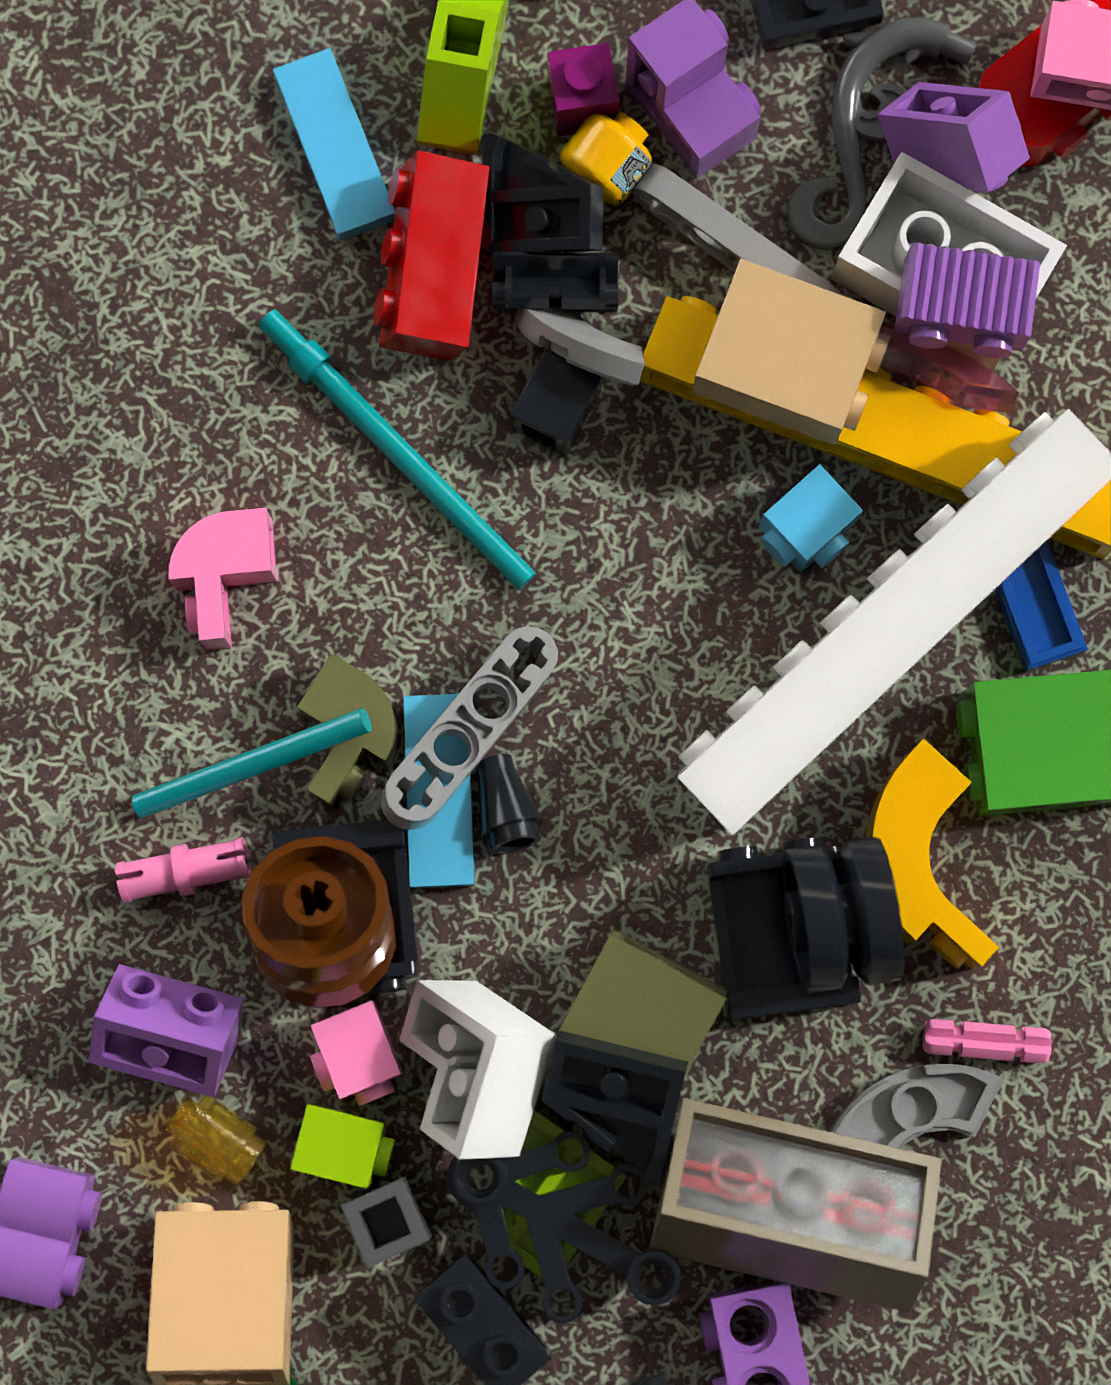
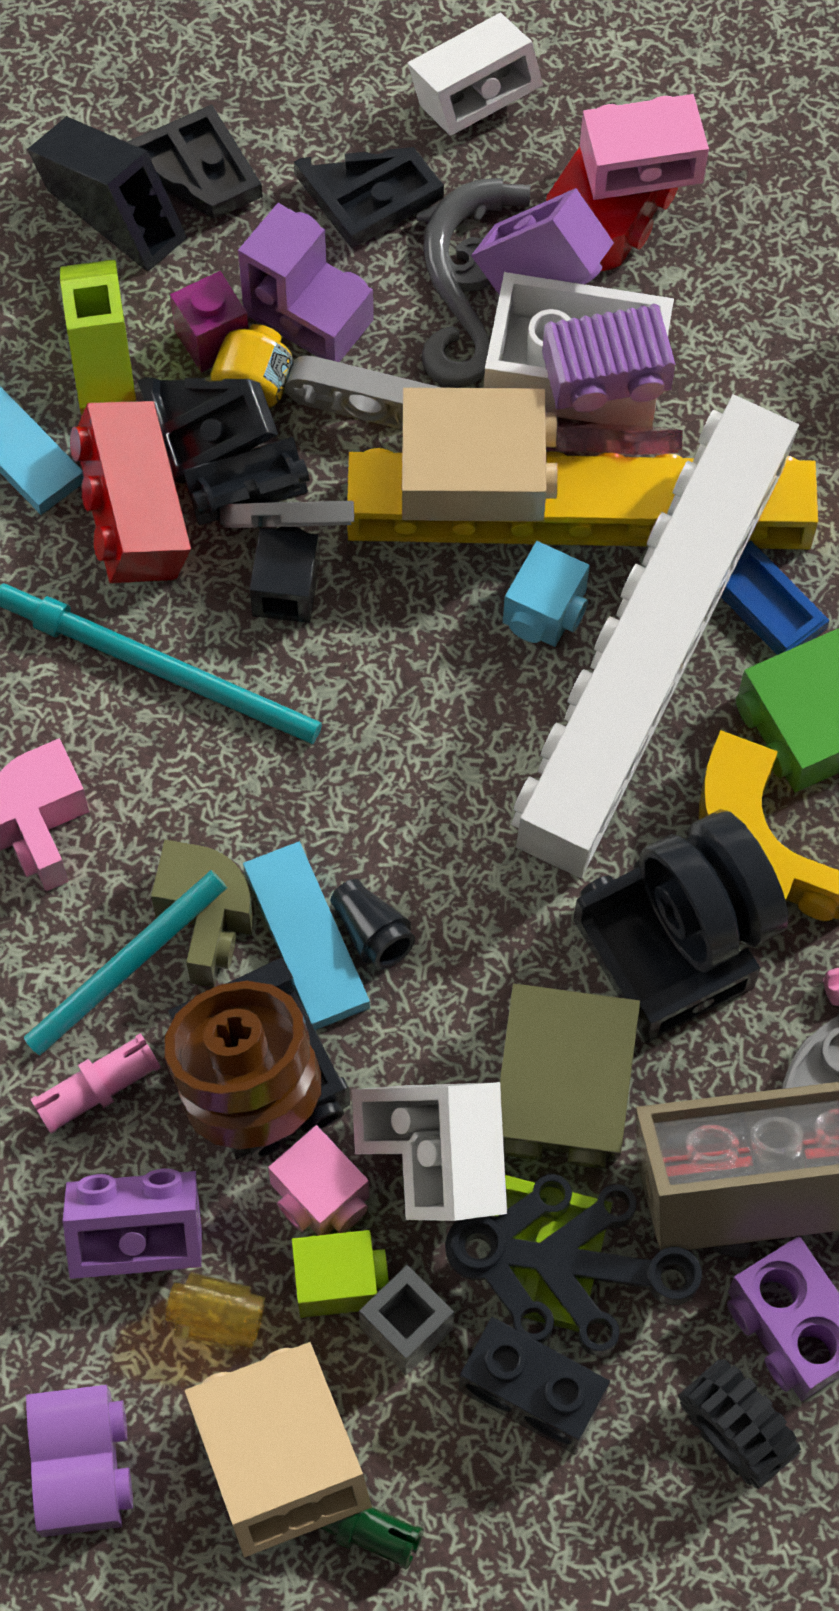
camera: 20 degrees left, 15 degrees down
(474, 730) = (314, 862): light grey beam -> none
(618, 1097) = (579, 1121): black wing -> none

